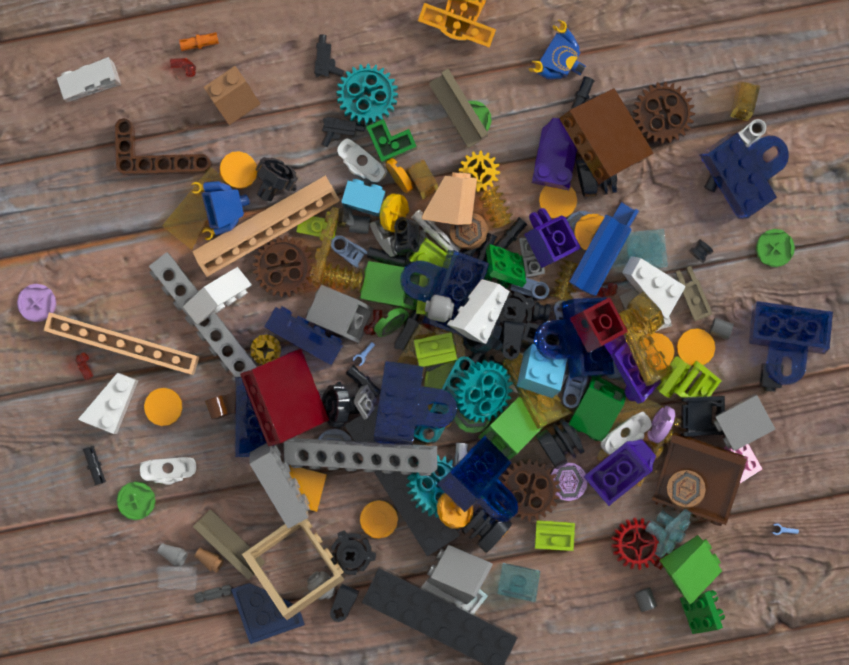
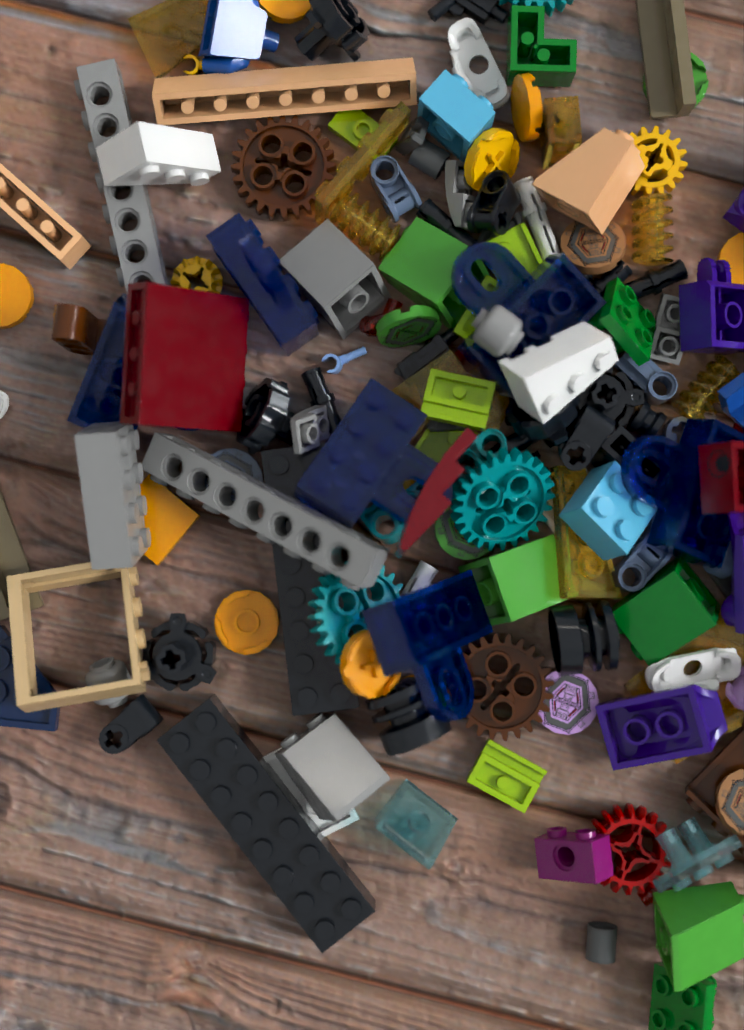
camera: 25 degrees right, 0 degrees up
(446, 412) = (430, 501): none -> dark red slope
(608, 560) = (588, 864): none -> magenta brick

